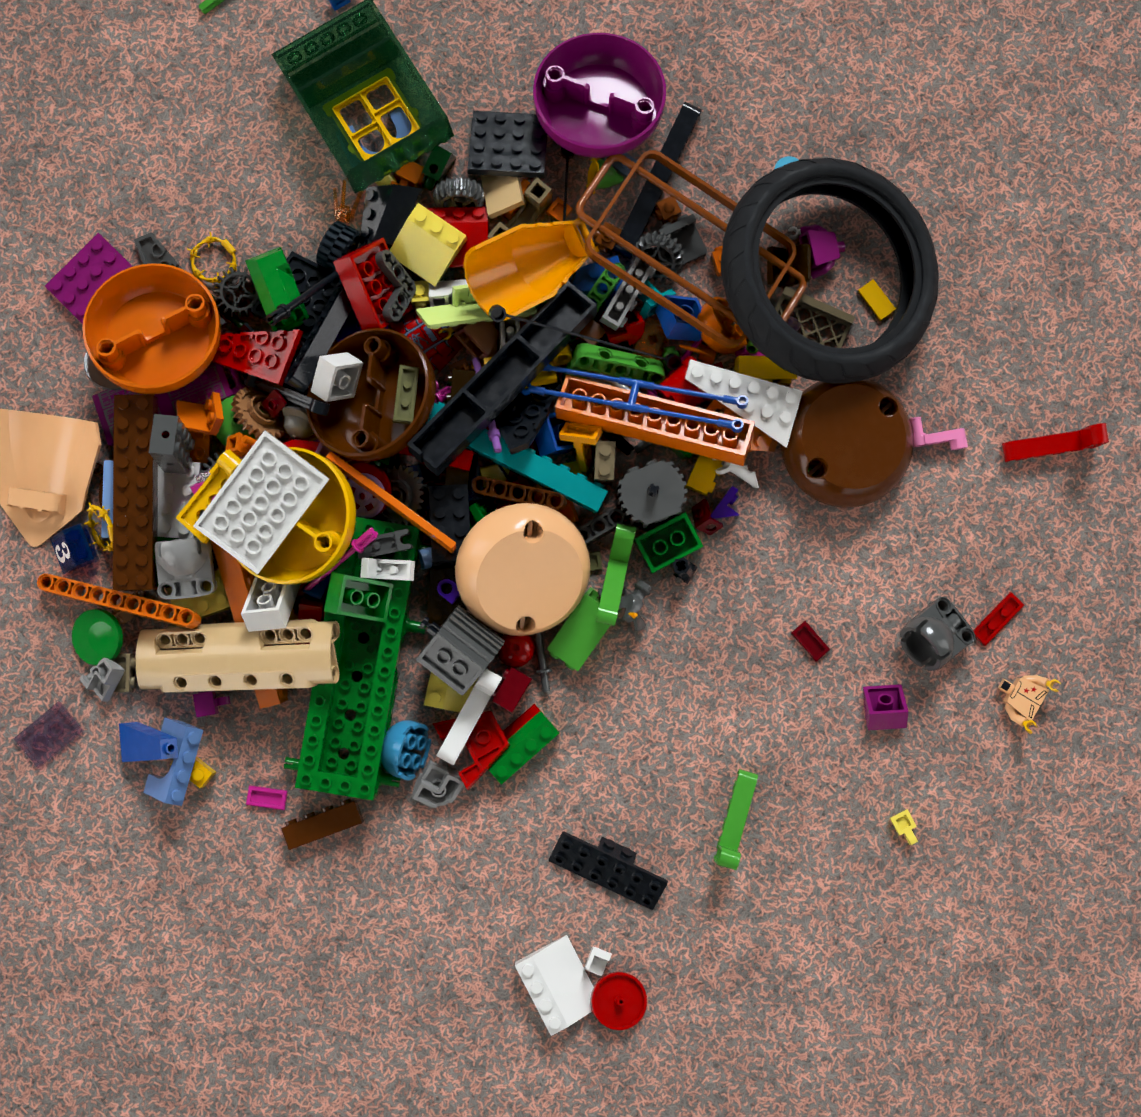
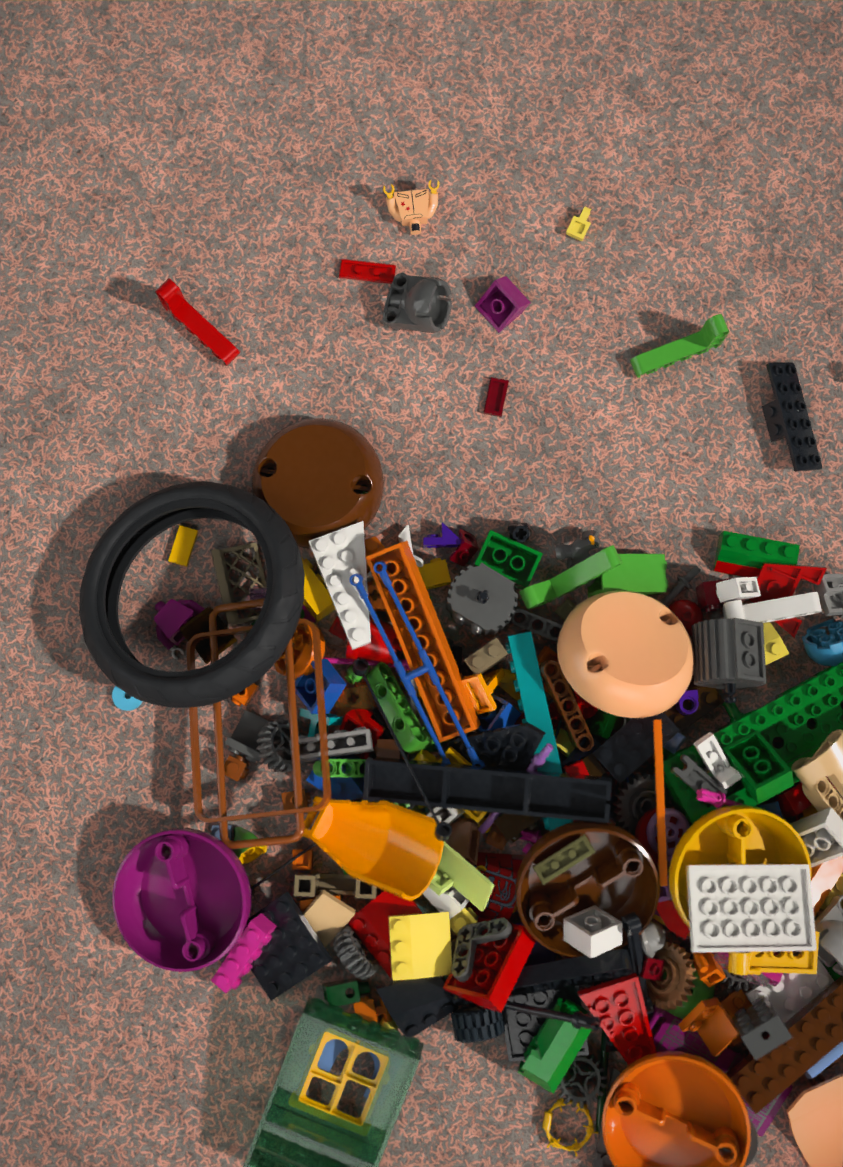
camera: 125 degrees left, 5 degrees down
(342, 212) = (443, 1045): clear orange plant -> none
(504, 699) = (738, 589): none -> white slope
(523, 113) = (244, 953): none -> dark pink brick
(650, 193) = (235, 793): black beam -> none
(706, 354) = (332, 647): orange plant -> none
(955, 437) = (249, 403): bright pink beam -> none

